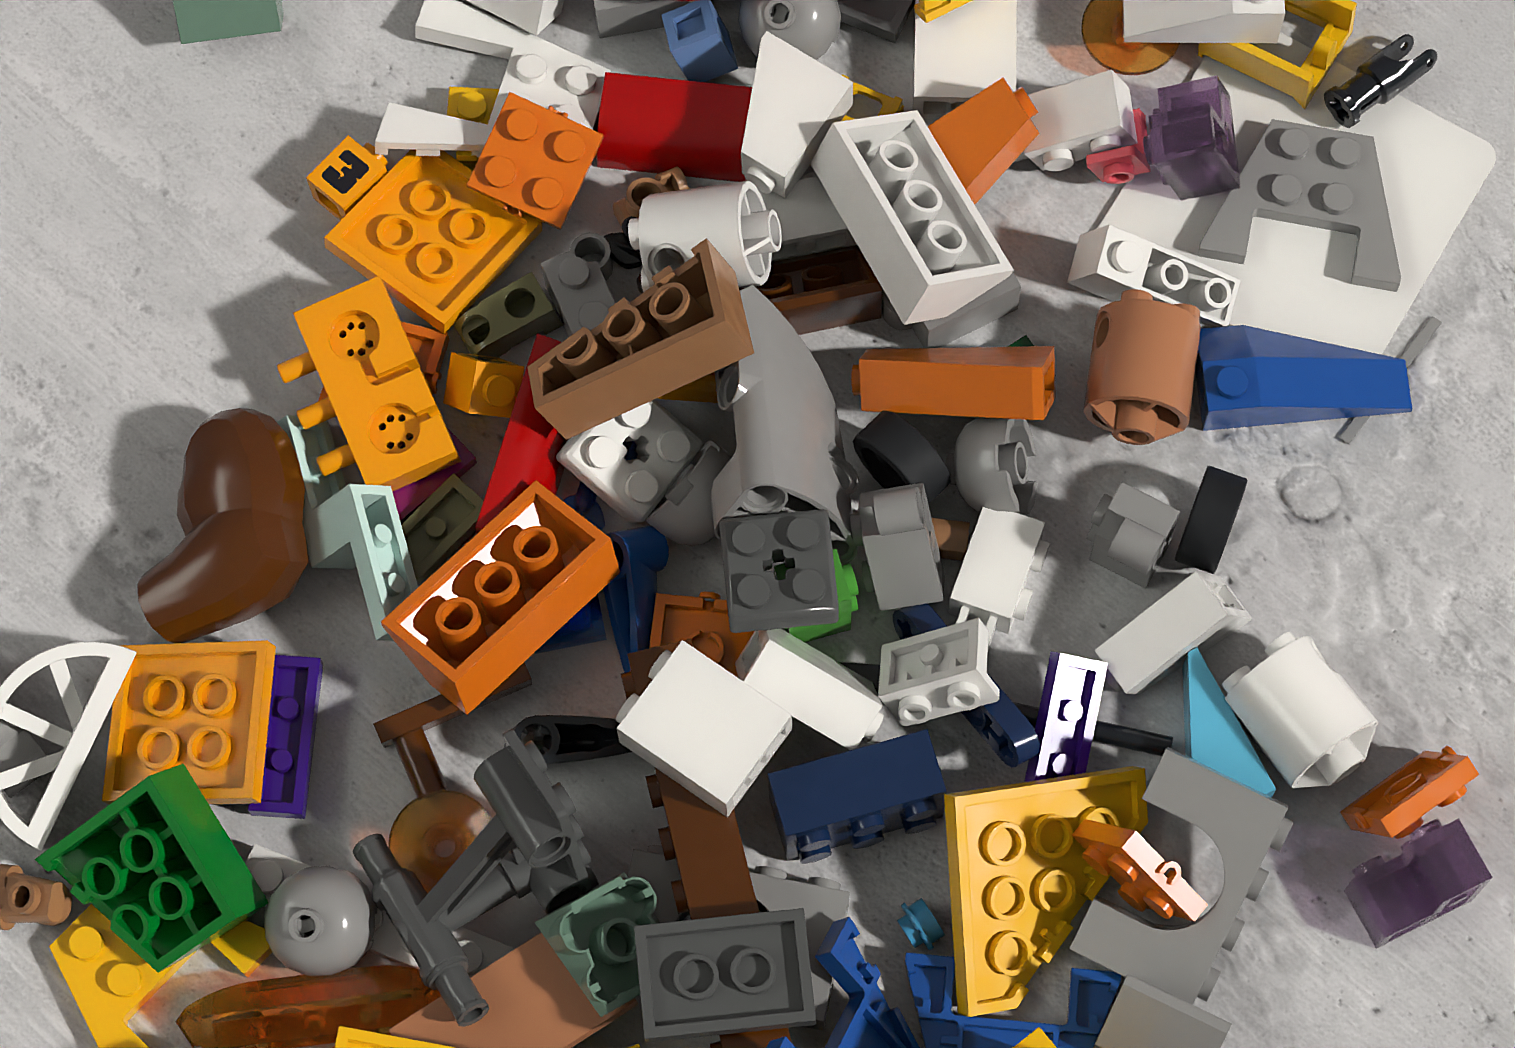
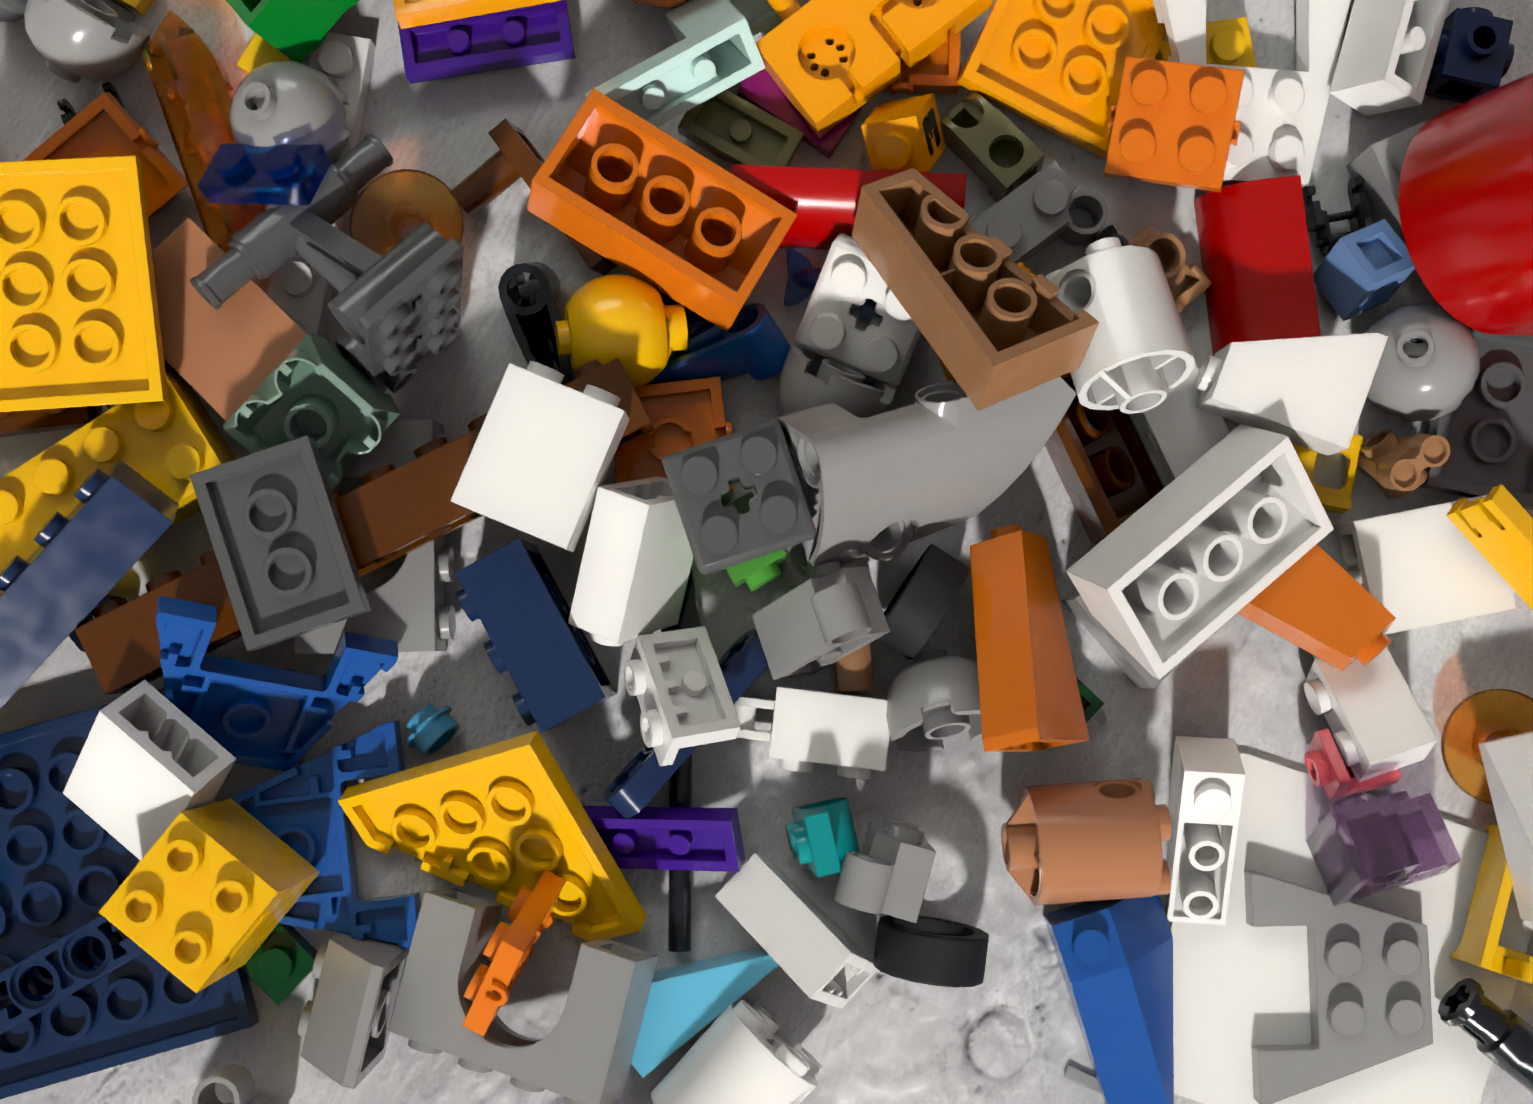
camera: 75 degrees right, 15 degrees up
(374, 937) = (265, 174): none -> clear blue plate
(589, 660) = (624, 321): none -> yellow brick
(647, 39) = (1319, 221): none -> black piece
(871, 49) = (1401, 462): none -> medium nougat plate
(1091, 595) = (822, 835): none -> teal plate

